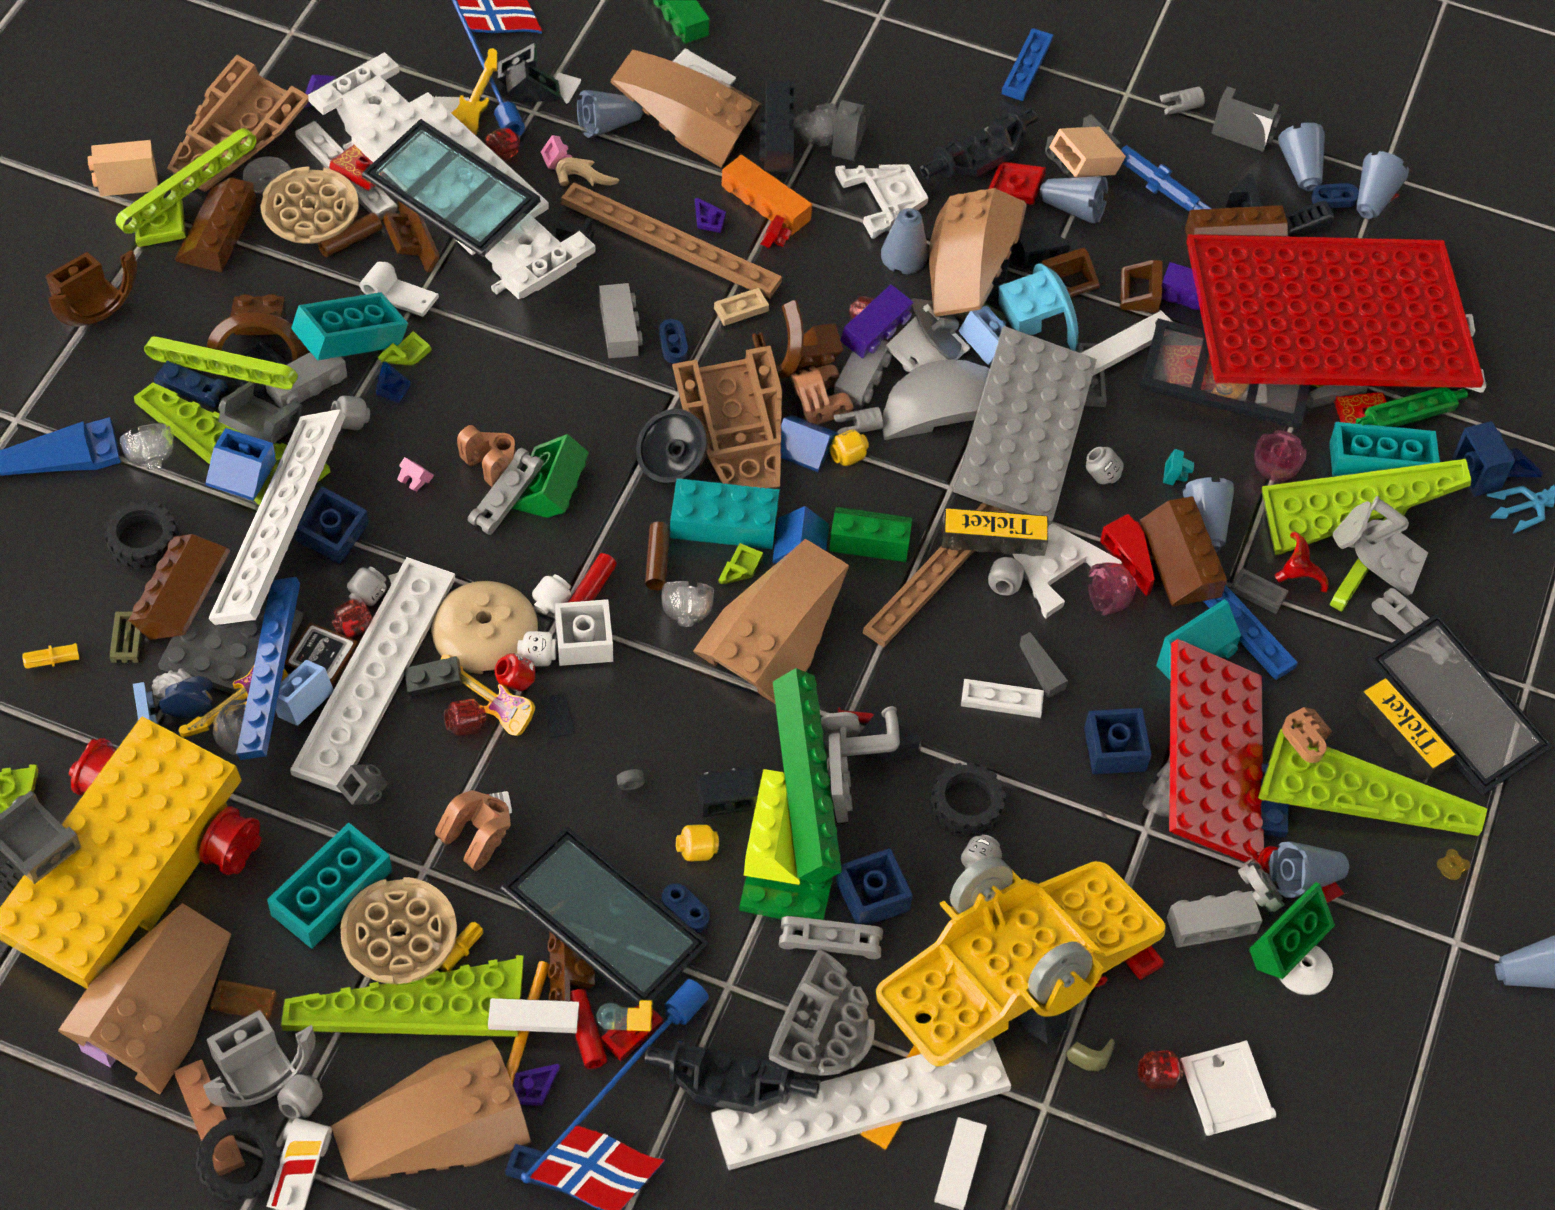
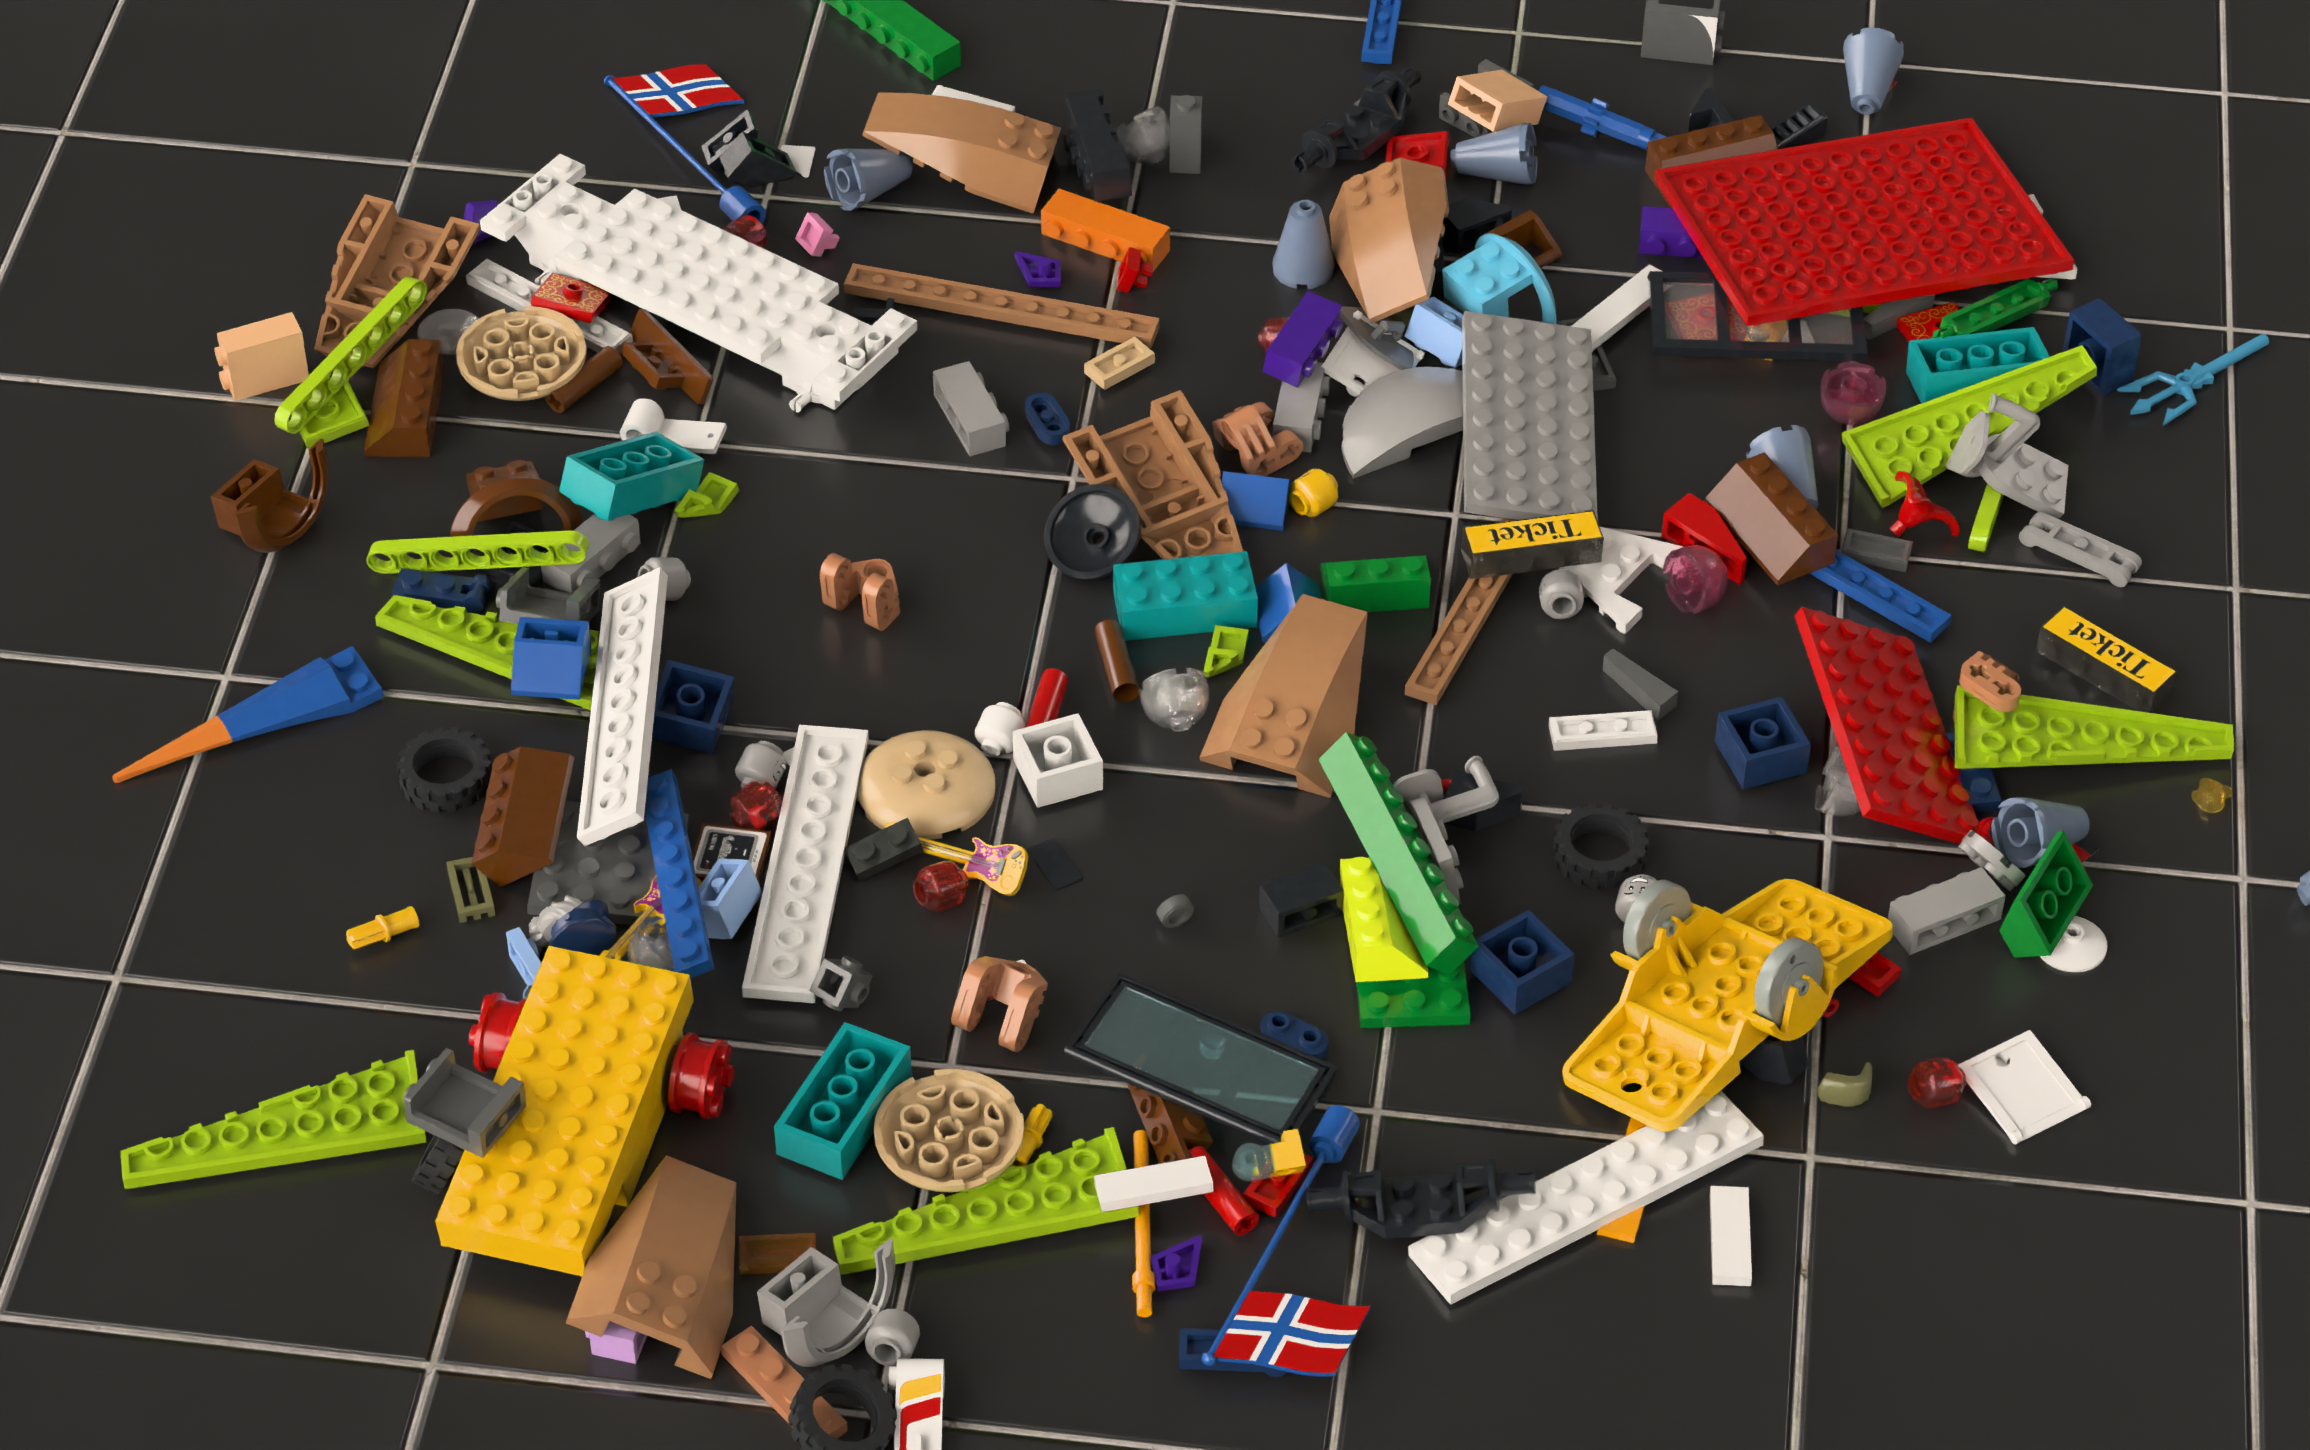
camera: 10 degrees left, 10 degrees down
(149, 446) = (419, 666): clear cylinder -> none
(391, 383) = (703, 537): clear blue piece -> none
(418, 473) = (774, 627): bright pink tile -> none
(437, 1118) = (1071, 1324): medium nougat wedge -> none
(451, 187) = (711, 287): clear light blue door -> none
(469, 111) = (688, 201): yellow piece -> none
(506, 491) = (899, 625): light grey plate -> none
(515, 672) = (987, 821): red head -> none
(538, 647) = (1005, 791): white head -> none
(556, 480) = (948, 600): green slope -> none
(583, 168) = (858, 245): tan piece -> none
(697, 842) = (1284, 961): yellow head -> none
(814, 348) = (1229, 381): reddish brown piece -> none
(824, 1023) = (1511, 1114): light grey brick -> none
(831, 936) = (1485, 1028): light grey plate -> none
(863, 420) = (1326, 456): light grey hinge -> none
(893, 188) = (1262, 191): white wing -> none
(1104, 465) = (1640, 447): light grey head -> none
(1146, 270) = (1622, 223): reddish brown tile -> none
(1177, 468) = (1728, 434): teal tile -> none
(1185, 100) = (1595, 23): light grey hinge -> none
(1211, 631) = (1837, 593): teal slope -> none
(1304, 153) = (1766, 53): sand blue cone -> none
(1336, 195) = (1823, 93): dark blue plate -> none
(1461, 703) = (2165, 617): clear door -> none
(1523, 466) = (2154, 351): clear blue piece -> none

